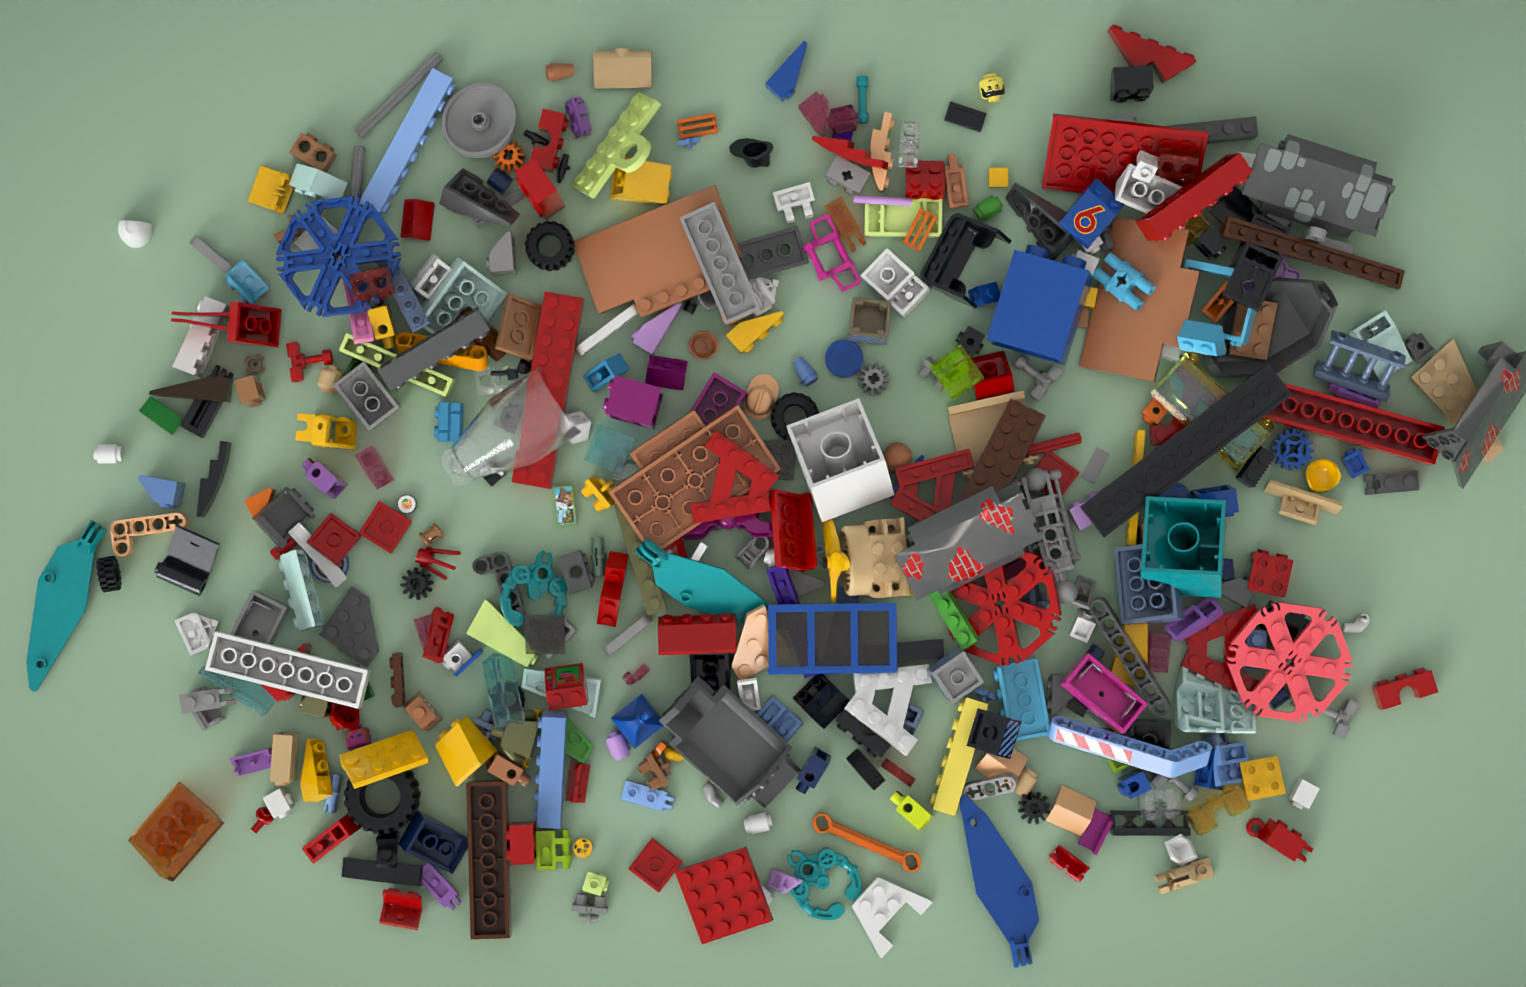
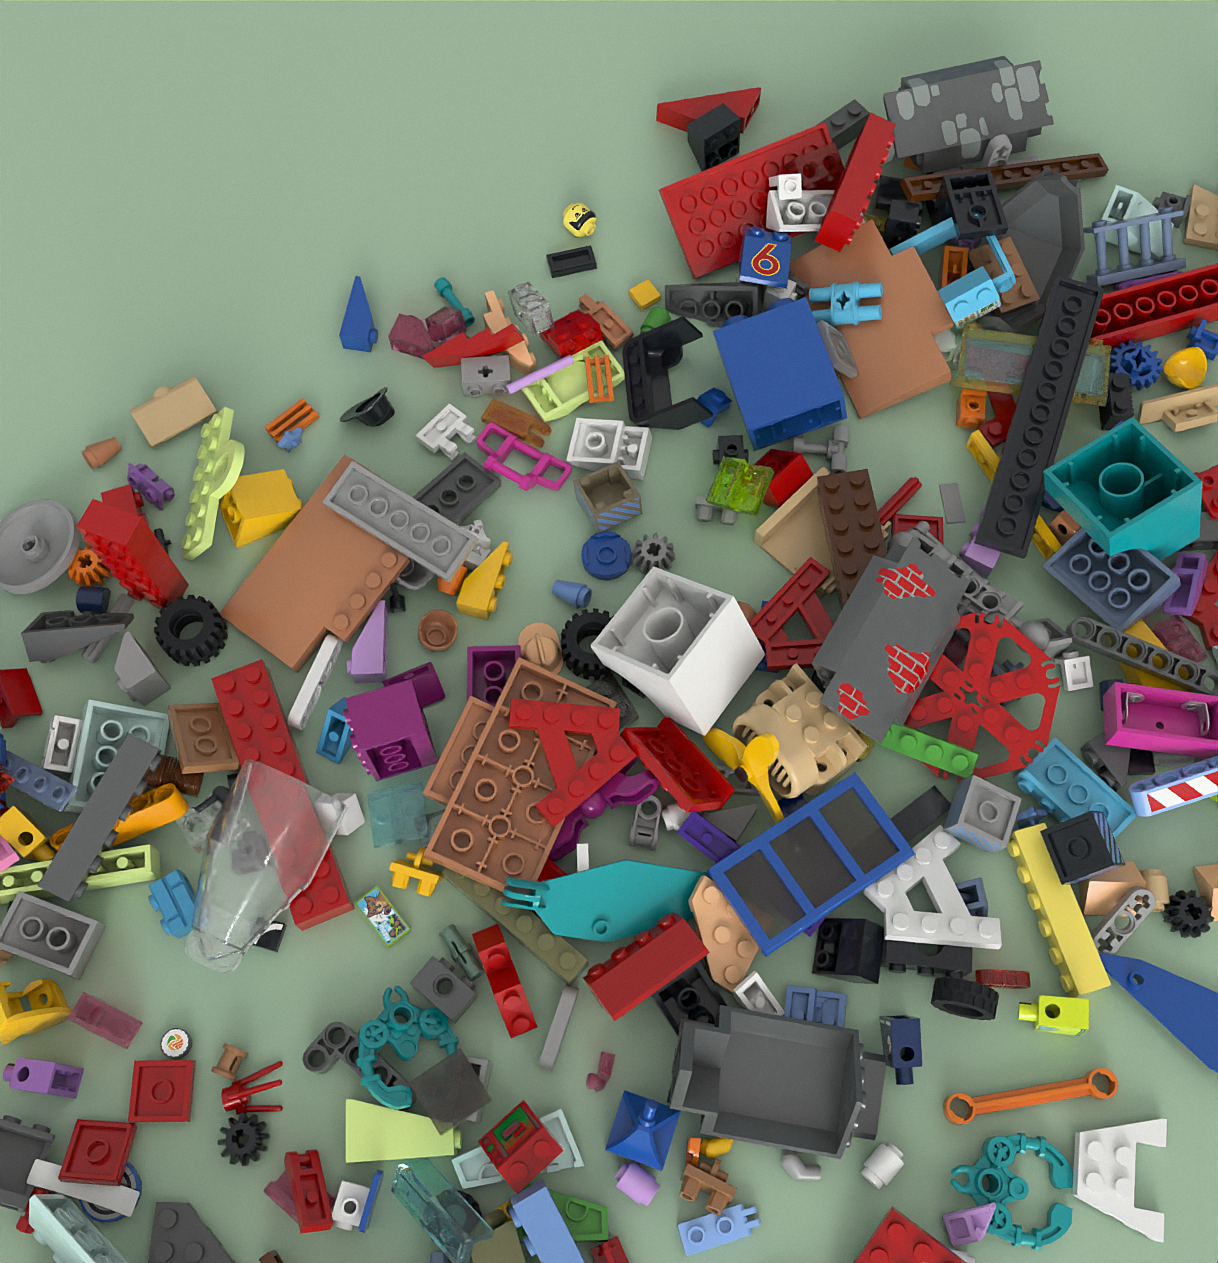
camera: 30 degrees left, 20 degrees down
(1092, 313) = (838, 349): none -> light grey plate

